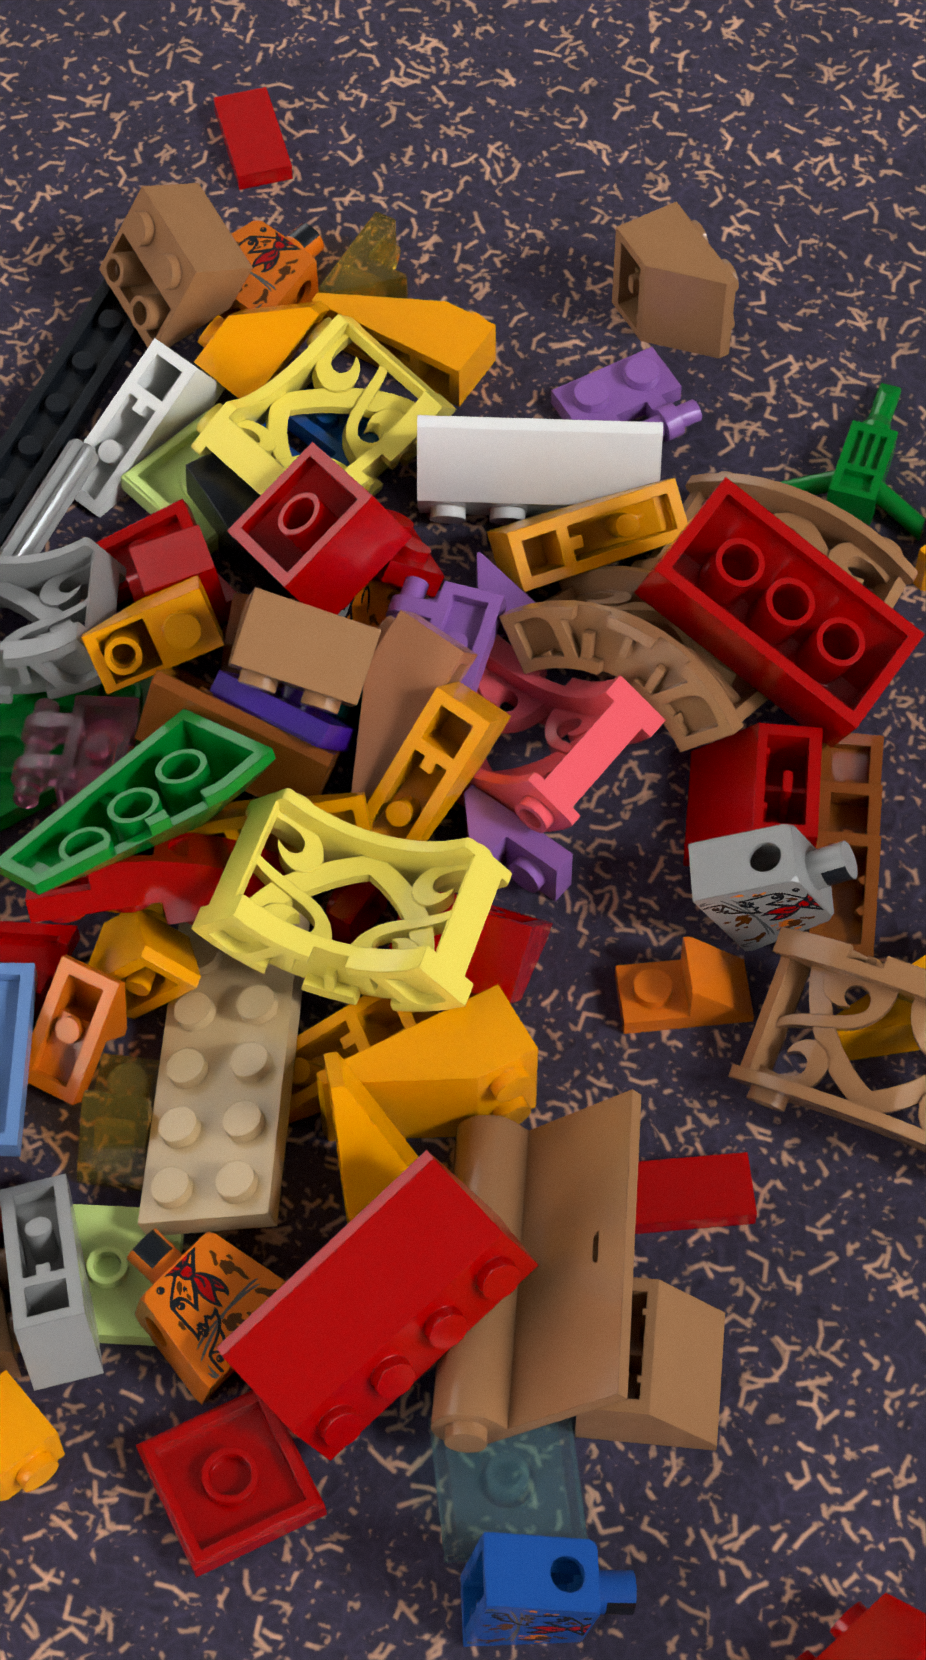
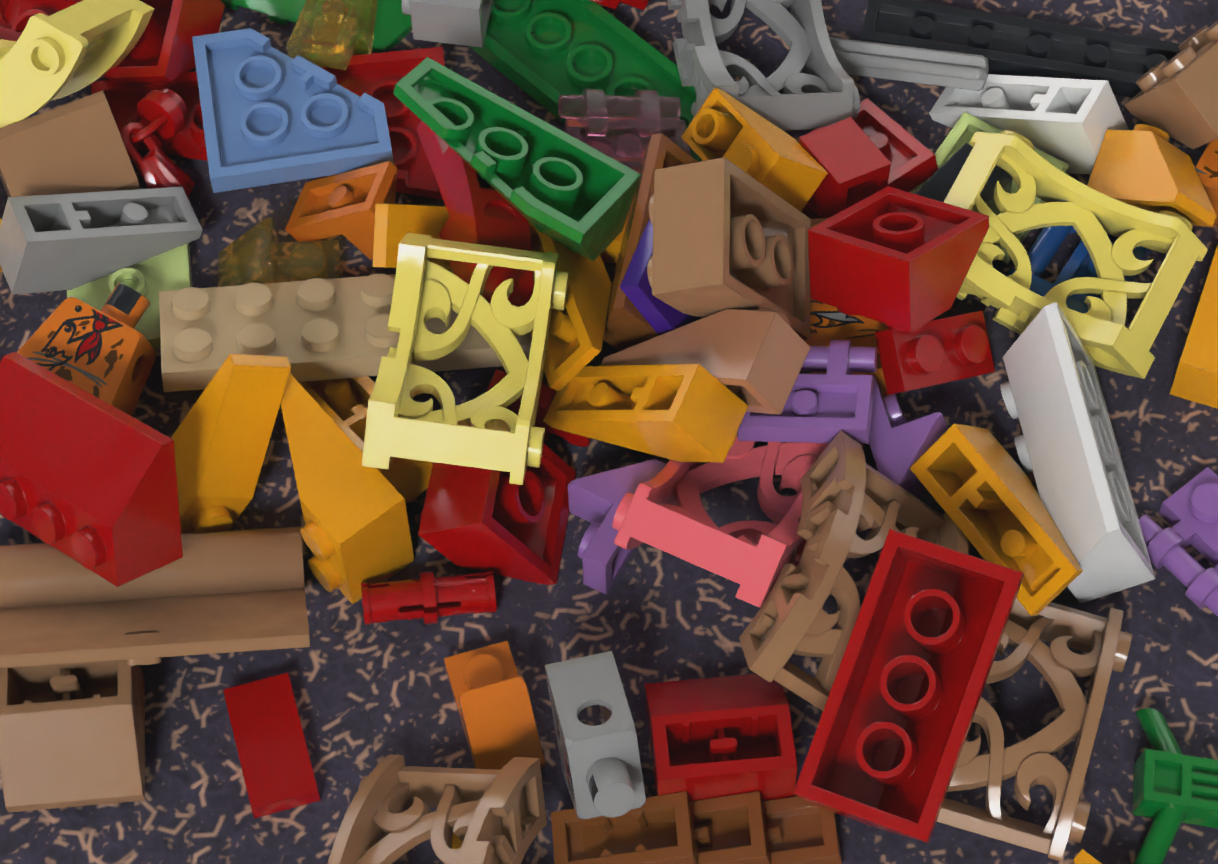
camera: 80 degrees right, 0 degrees up
(555, 1026) = (428, 597): none -> red pin

